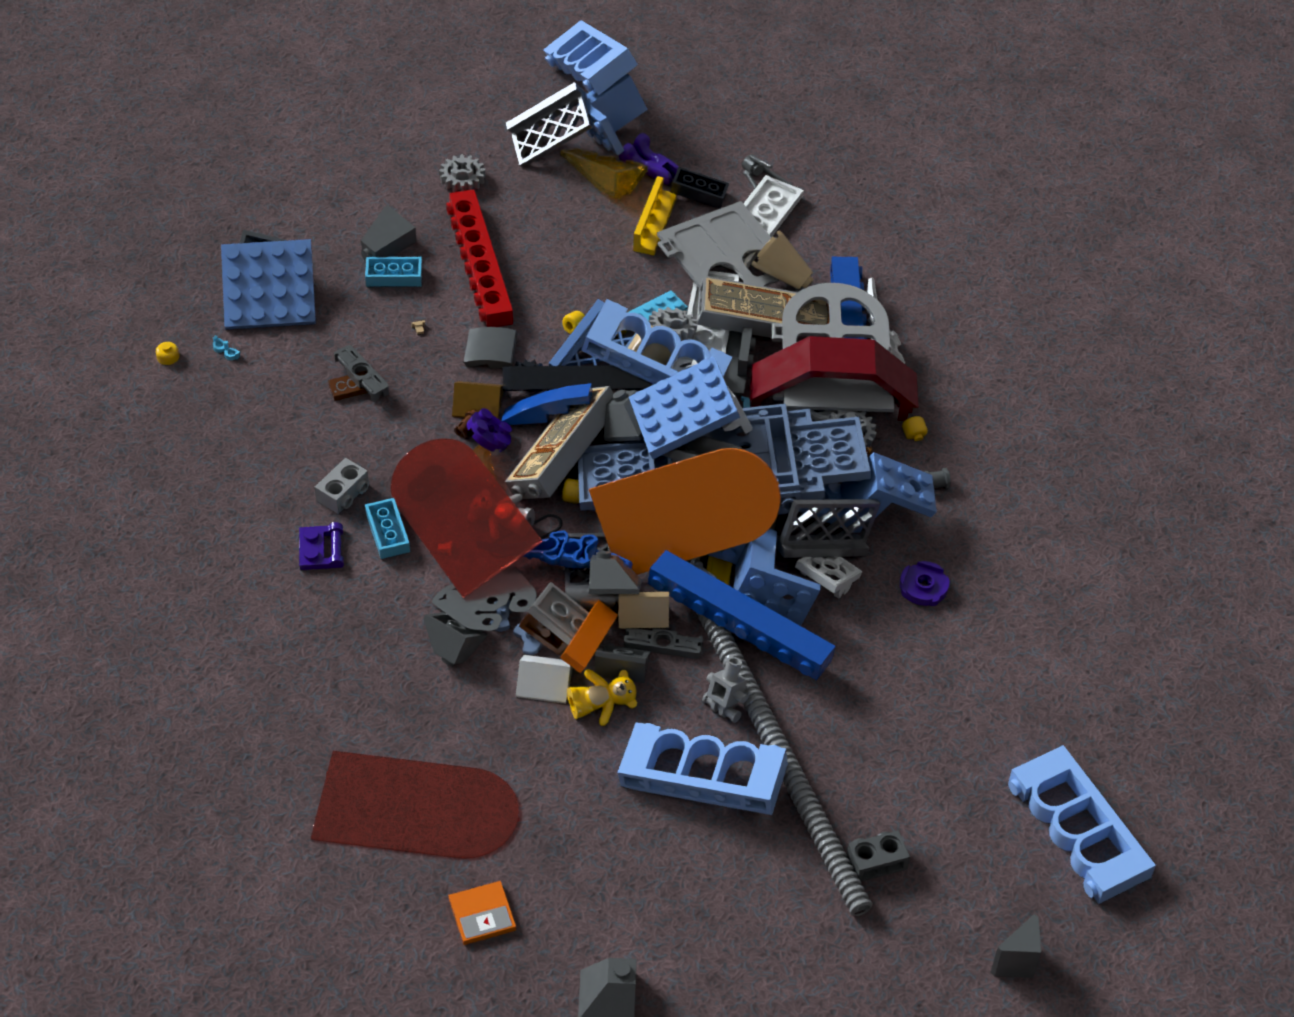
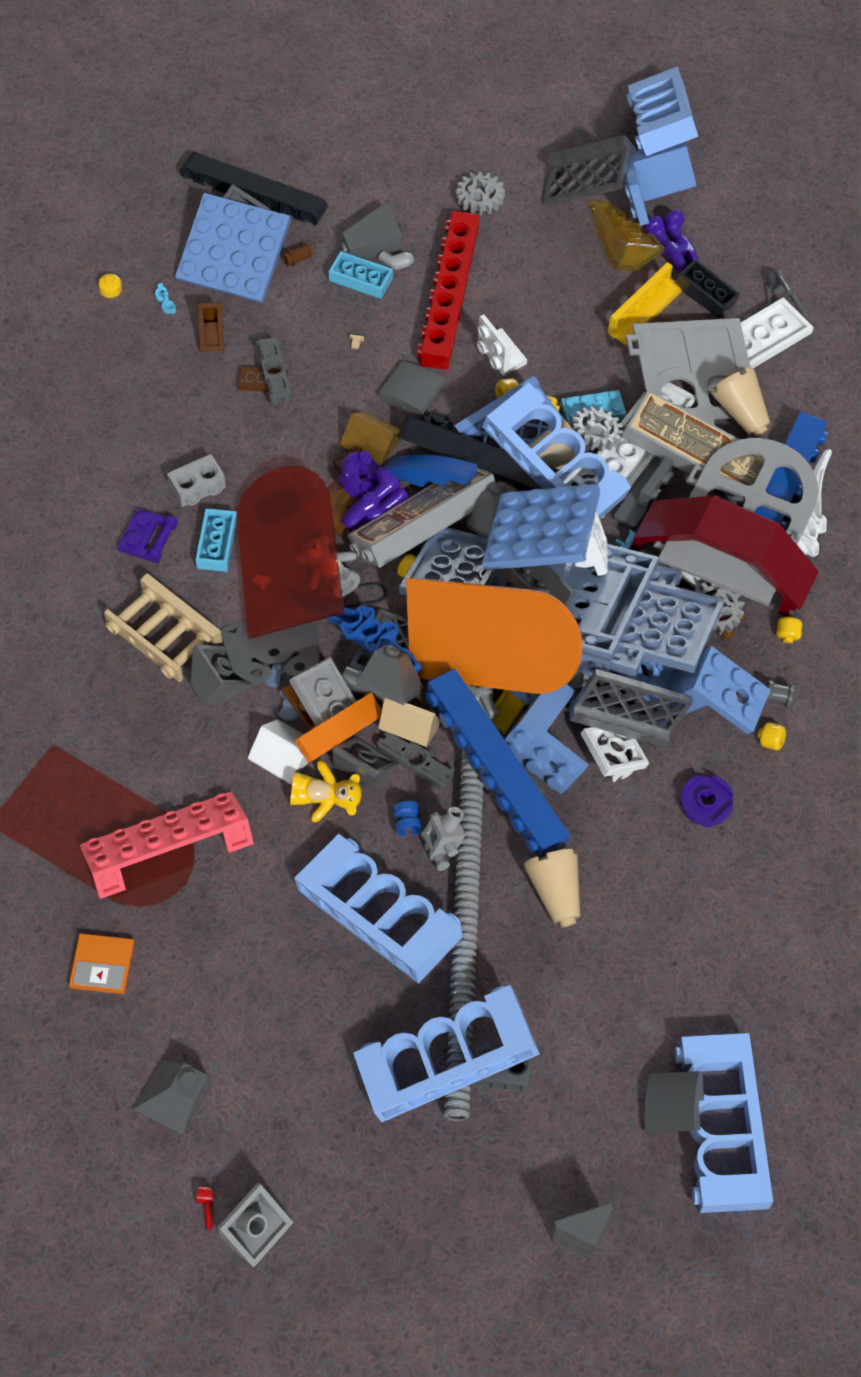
camera: 25 degrees right, 10 degrees up
(229, 229) = (271, 193): none -> black beam
(284, 355) = (211, 326): none -> reddish brown slope
(326, 273) = (296, 255): none -> reddish brown pin
(380, 595) = (169, 605): none -> tan fence
(420, 250) = (396, 261): none -> light grey arm
(486, 776) = (163, 834): none -> coral bracket
(511, 451) = (368, 506): none -> dark purple piece
(548, 289) = (498, 347): none -> white bracket
(683, 688) = (407, 817): none -> blue wheel
(842, 692) = (557, 884): none -> tan cone
(857, 801) = (377, 1060): none -> light blue fence
(948, 515) = (772, 736): none -> yellow piece
(1033, 822) = (673, 1102): none -> dark grey slope

